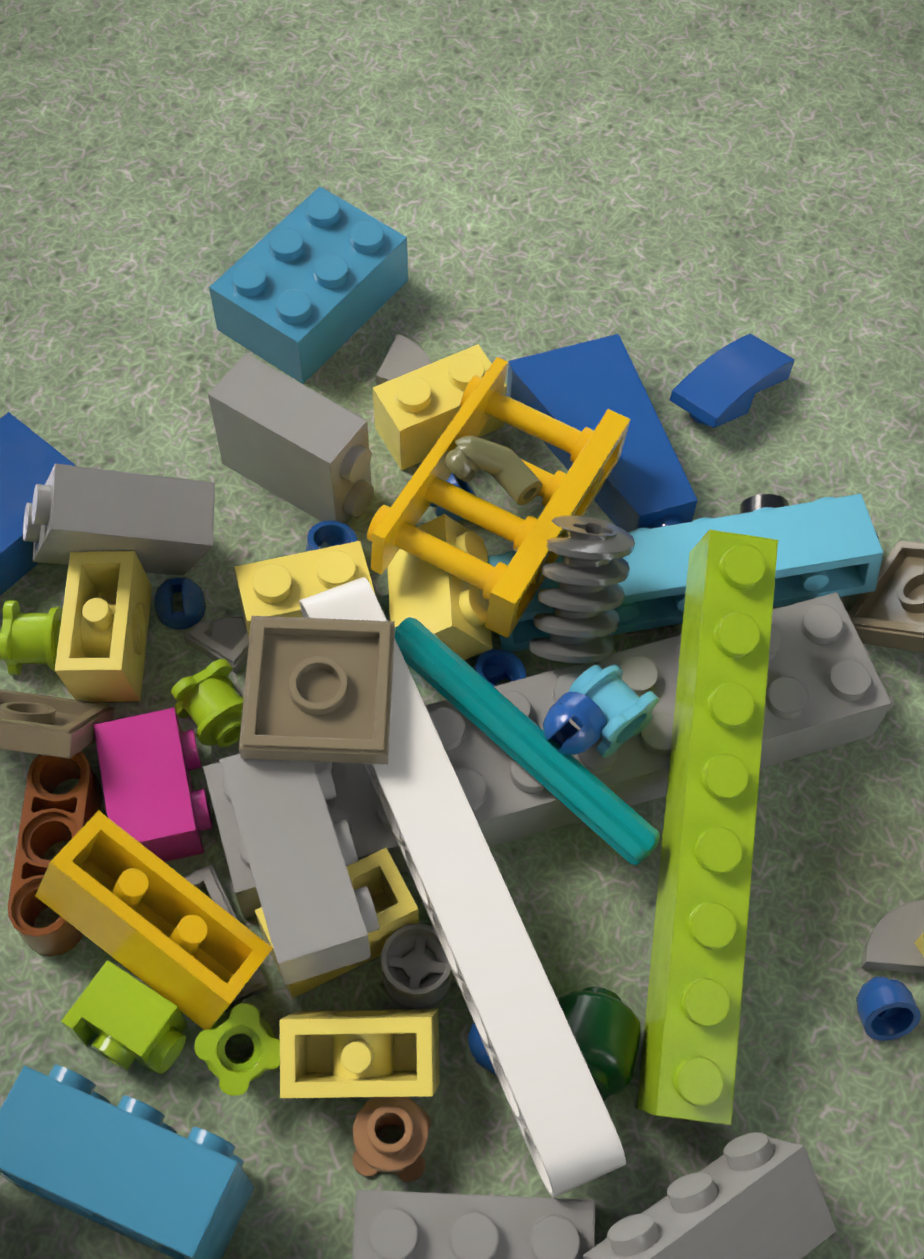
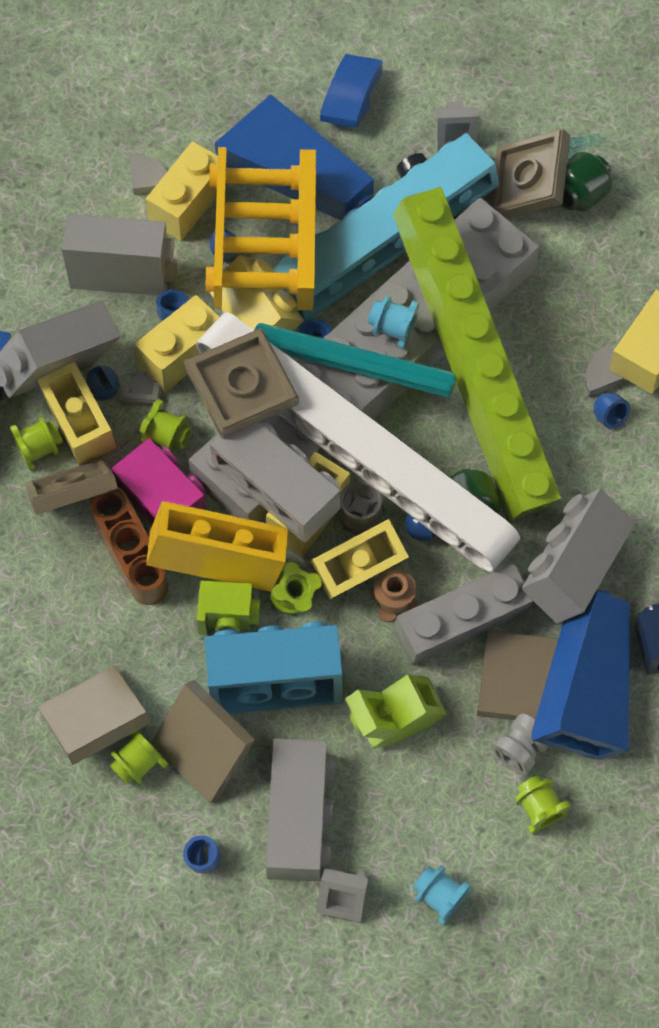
camera: 25 degrees left, 5 degrees up
(310, 284) = (56, 147): dark azure brick -> none
(497, 460) = (258, 211): olive arm -> none
(584, 713) = (384, 328): blue hinge -> none
(586, 591) = (347, 263): dark grey piece -> none
(856, 475) = (455, 122): none -> light grey tile

